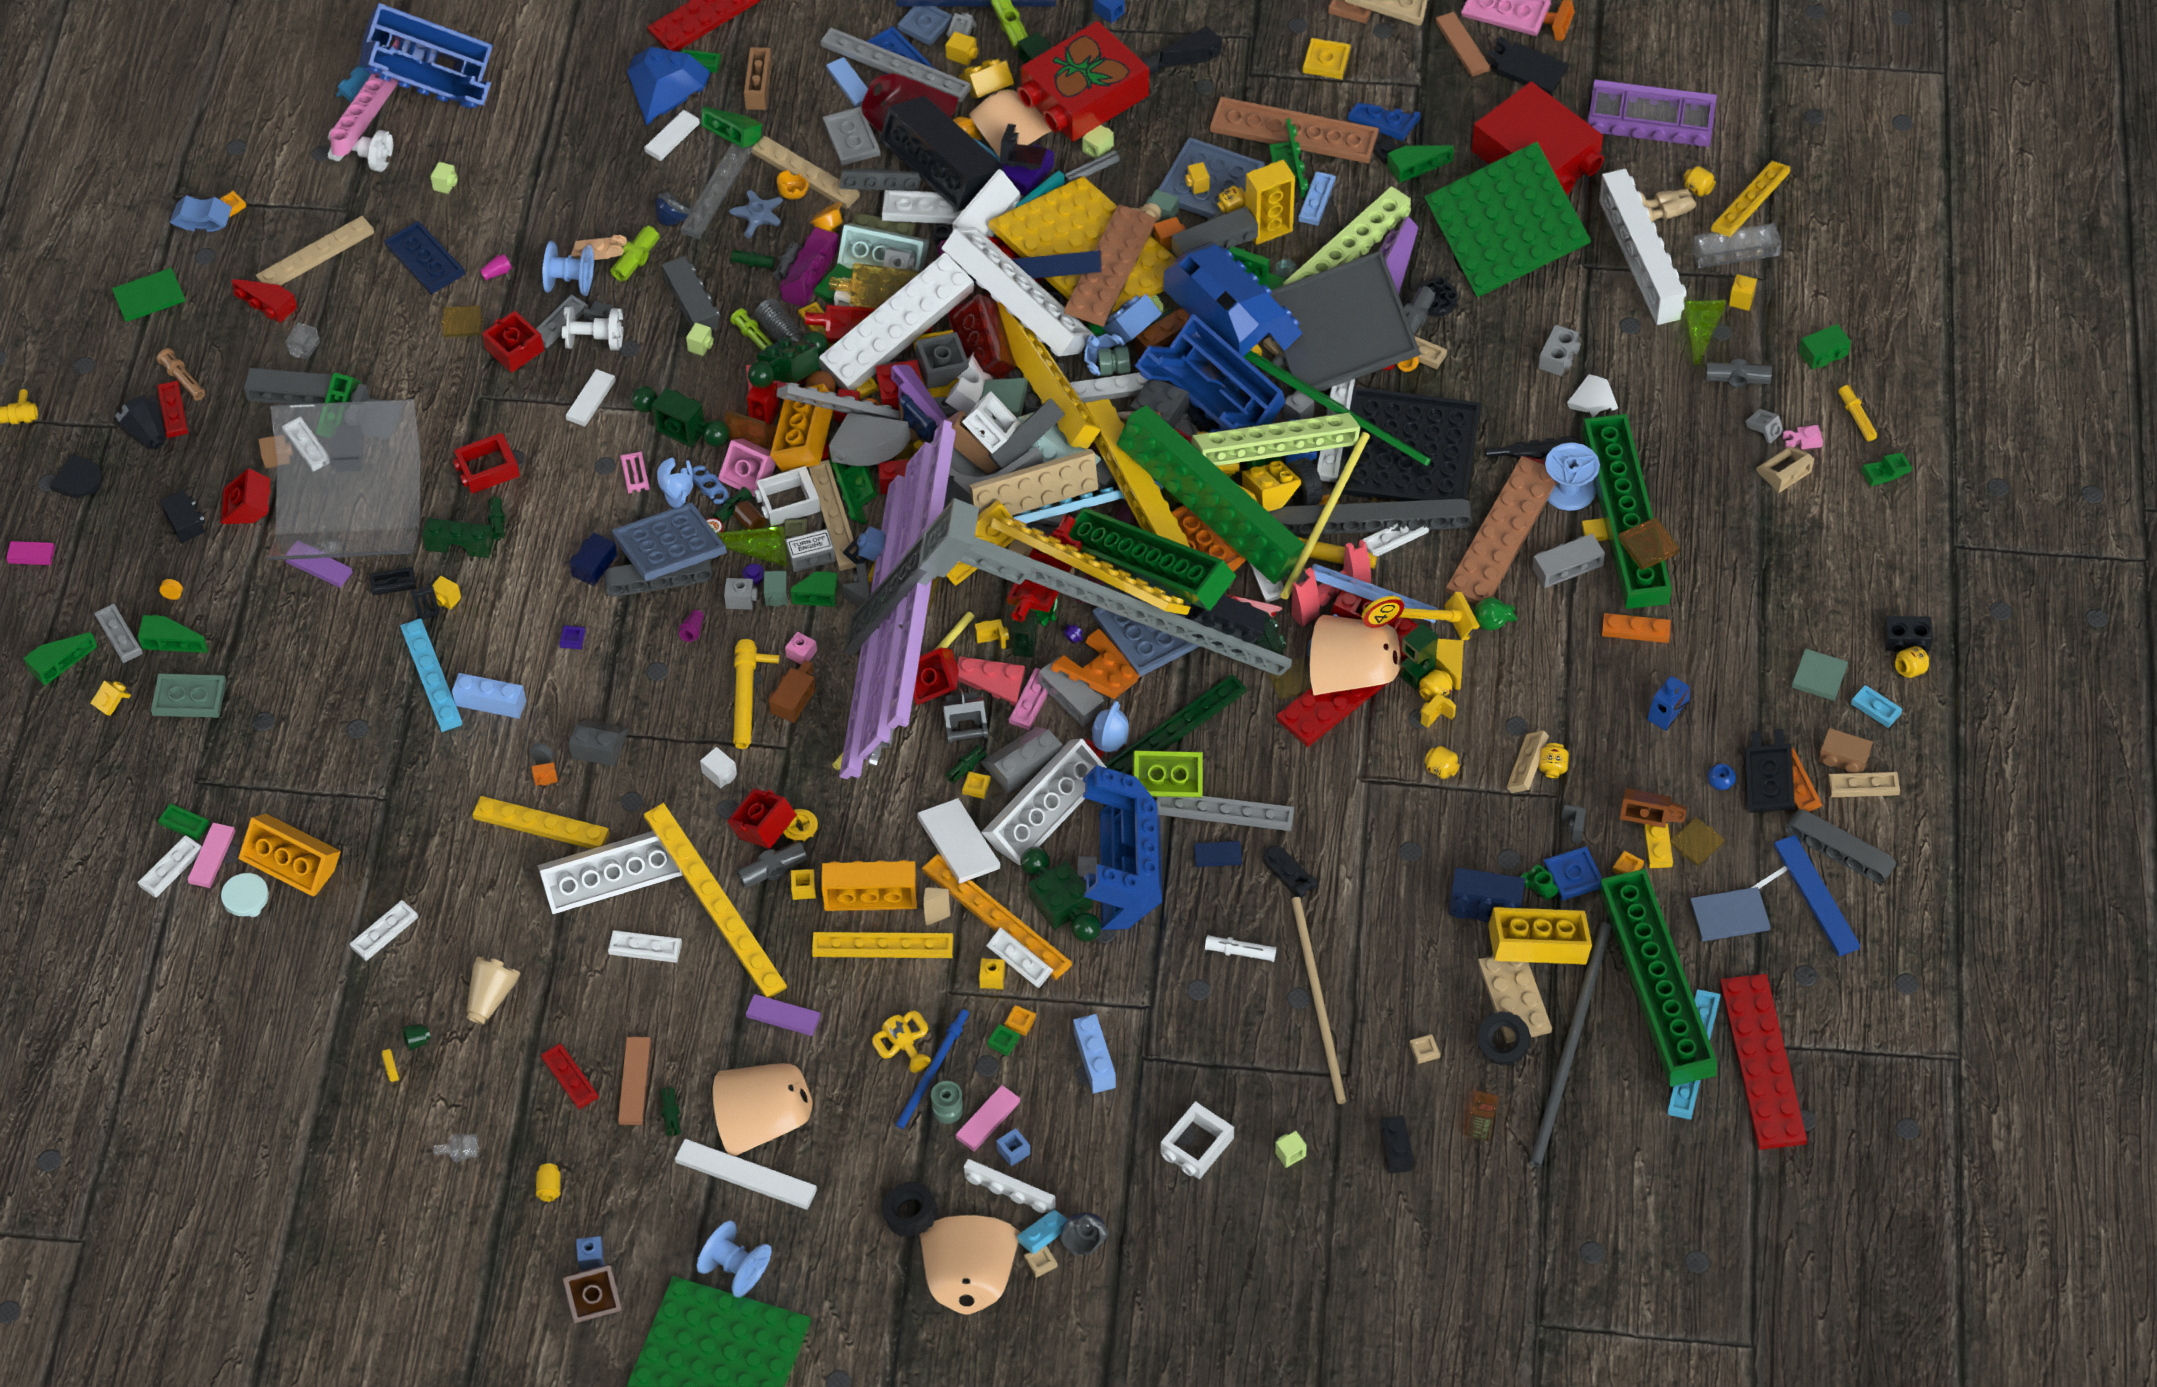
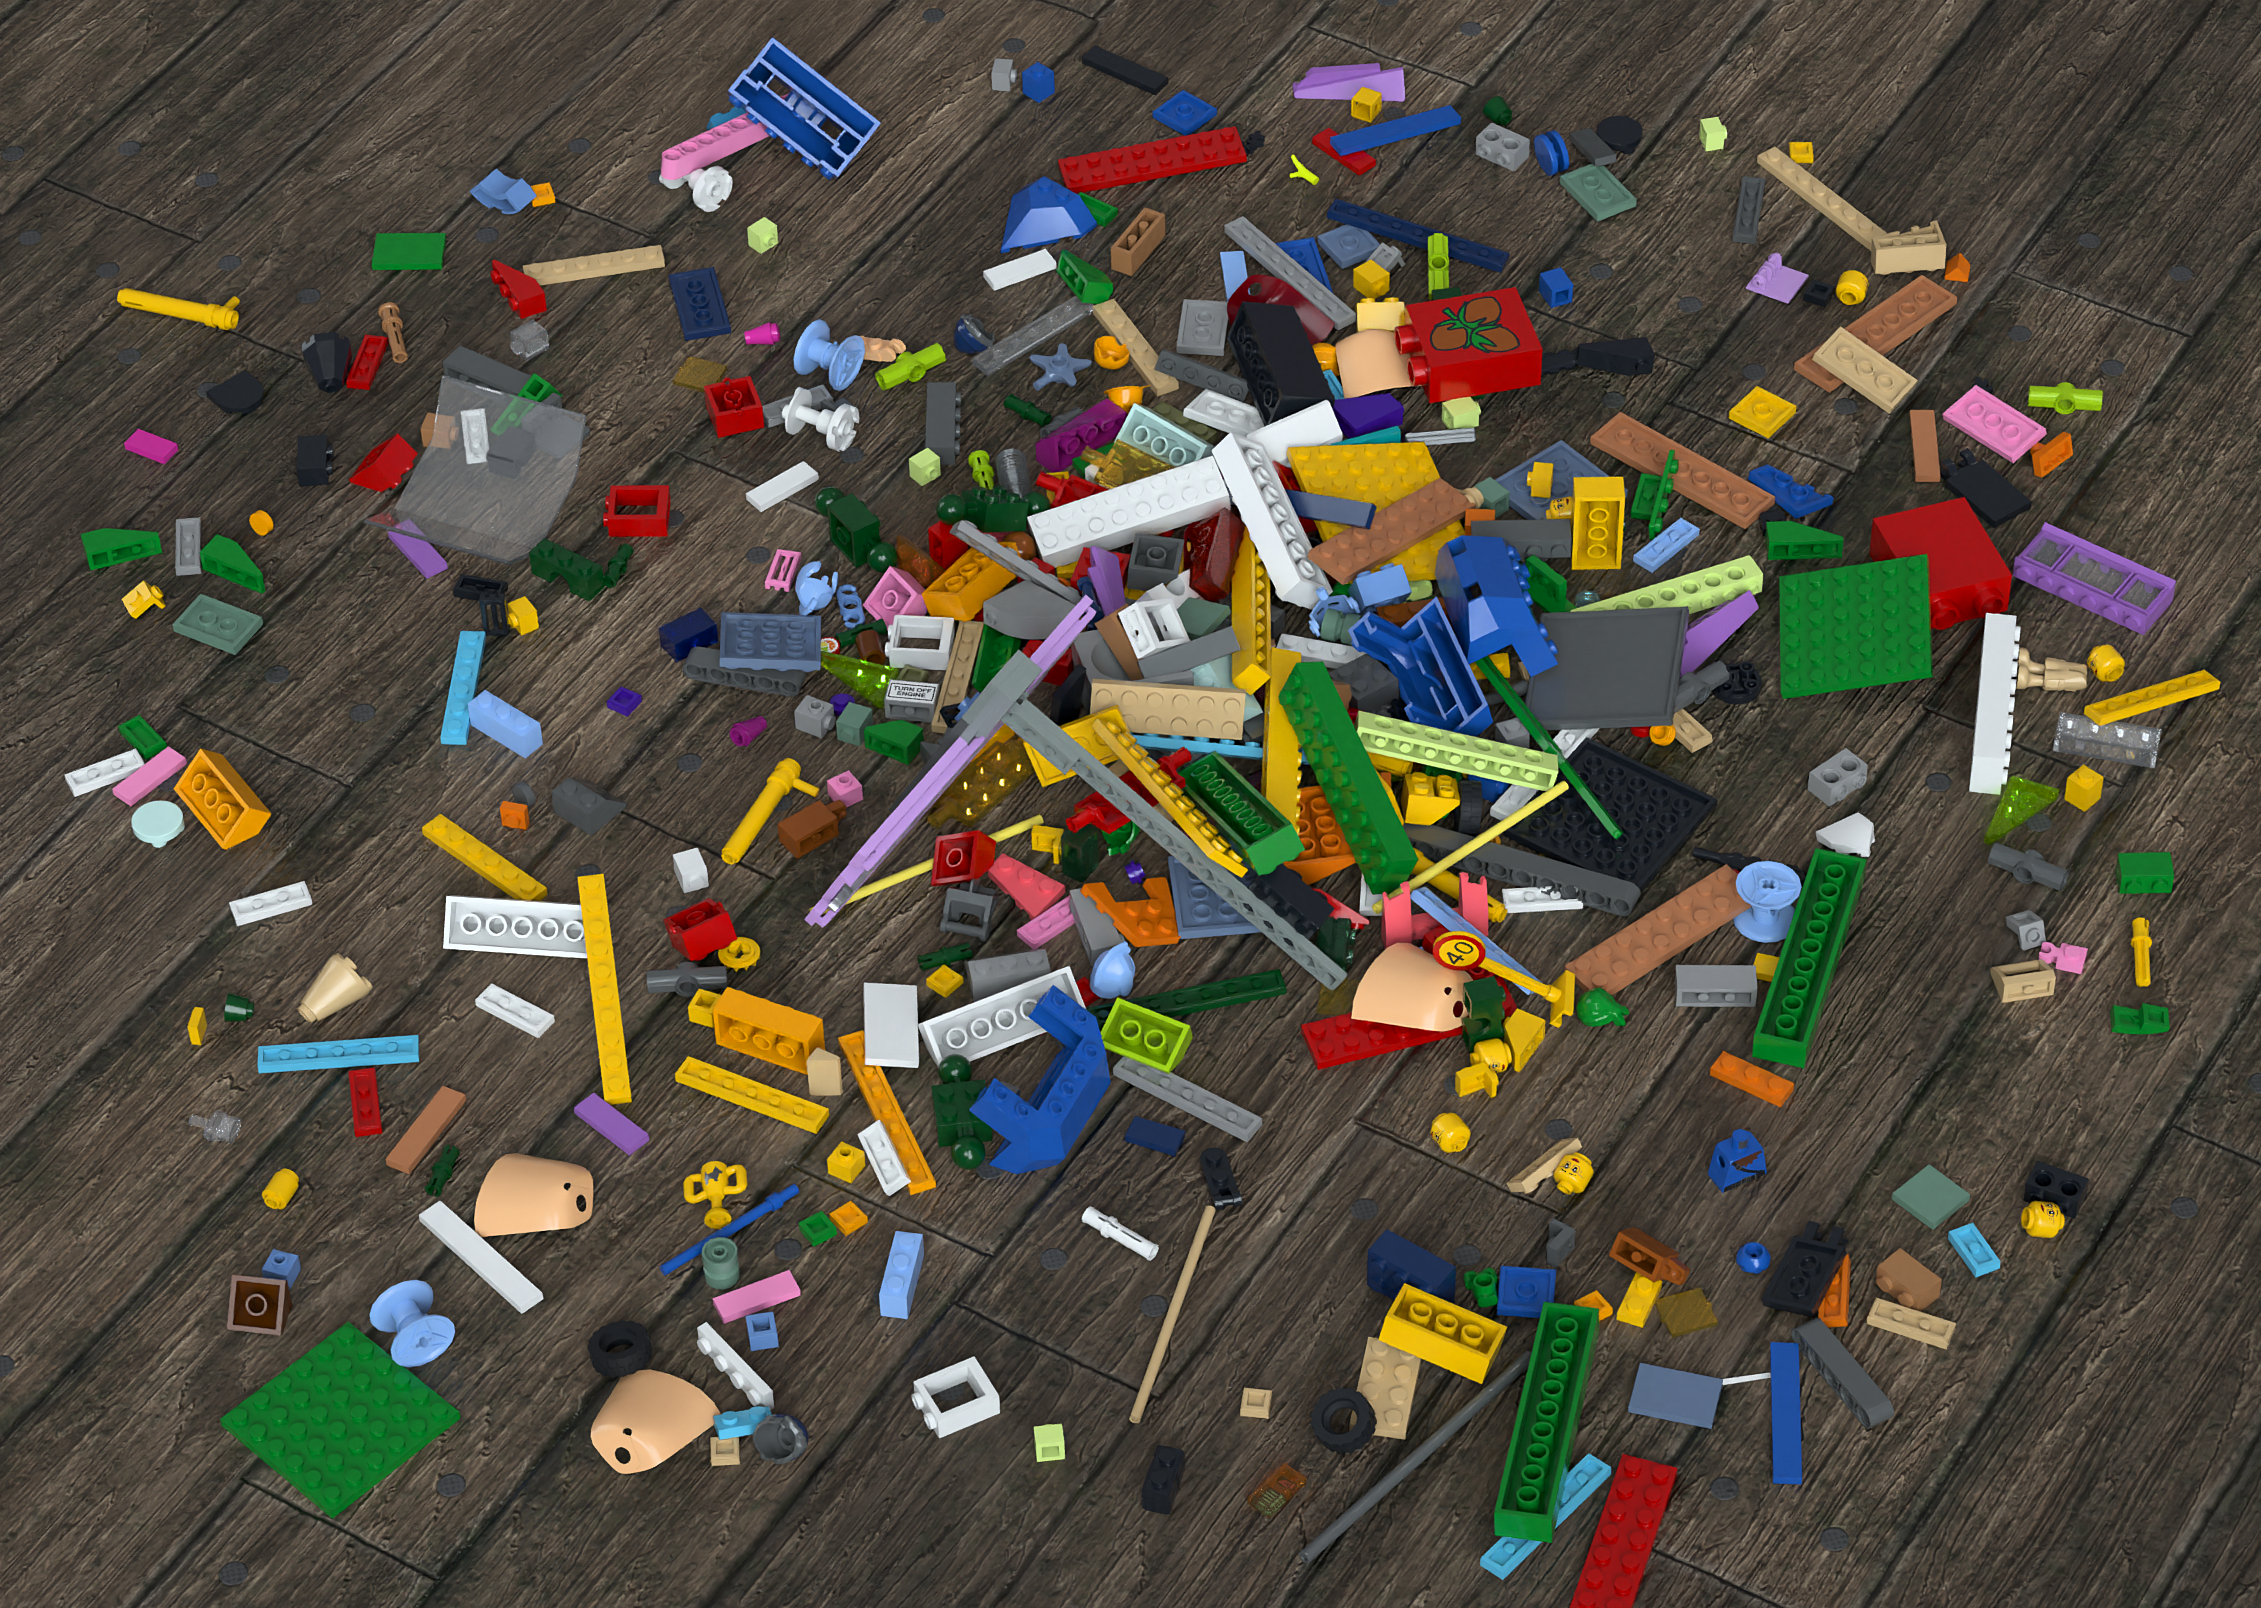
camera: 25 degrees right, 10 degrees down
(523, 1043) = (338, 1054): none -> medium azure plate
(899, 259) = (1172, 453): light grey brick -> none
(1015, 154) = (1352, 390): black bracket -> none
(1649, 543) = (1807, 993): clear orange tile -> none

